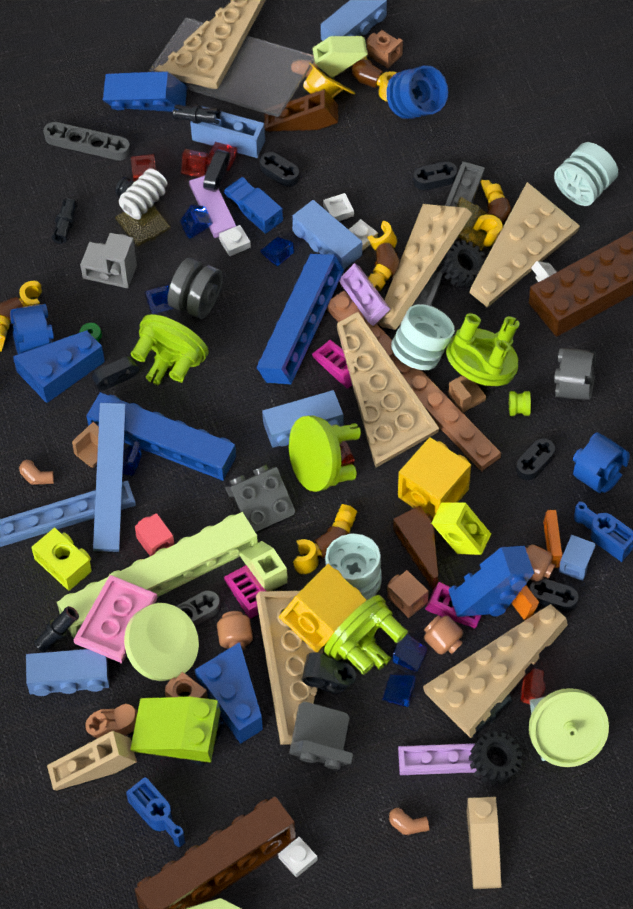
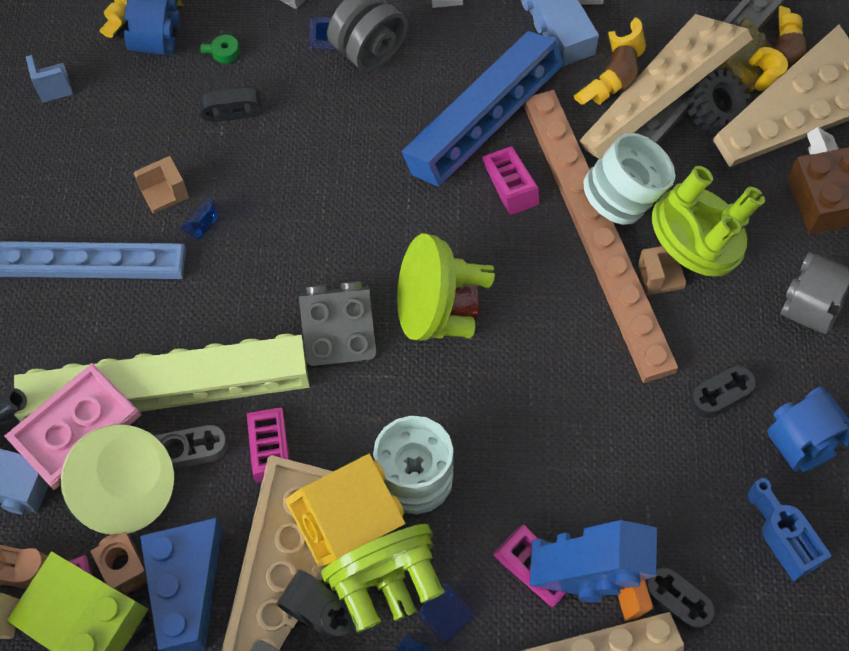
camera: 20 degrees right, 5 degrees up
(33, 475) = (75, 199): nougat arm -> none
(59, 364) = (169, 72): blue wedge -> none
(67, 571) = (43, 304): neon yellow brick -> none
(109, 477) = (157, 233): medium blue tile -> none
(153, 534) = (181, 326): coral brick -> none
(171, 438) = (251, 202): blue brick -> none
(172, 345) = (309, 91): lime piece -> none
(234, 628) = (223, 496): nougat head -> none
(265, 565) = (301, 419): yellowish green slope -> none
(278, 250) = (493, 18): clear blue slope -> none
(280, 419) = (460, 229): medium blue brick -> none
(343, 522) = (419, 404): yellow piece -> none
(363, 230) = (605, 23): white plate -> none
(364, 294) = (575, 102): lavender tile -> none
(387, 404) = (551, 253): tan wing -> none
(407, 593) = (475, 524): nougat brick -> none
(418, 539) = (521, 446): reddish brown slope -> none
(434, 477) = (572, 376): yellow brick -> none
(443, 635) = (501, 605): nougat head -> none
(461, 528) = (582, 459): neon yellow brick -> none
(519, 403) = (727, 308): lime wheel -> none
(540, 562) = (673, 544): nougat head -> none
(552, 536) = (706, 516): orange tile -> none
(576, 557) = (731, 556): medium blue panel -> none

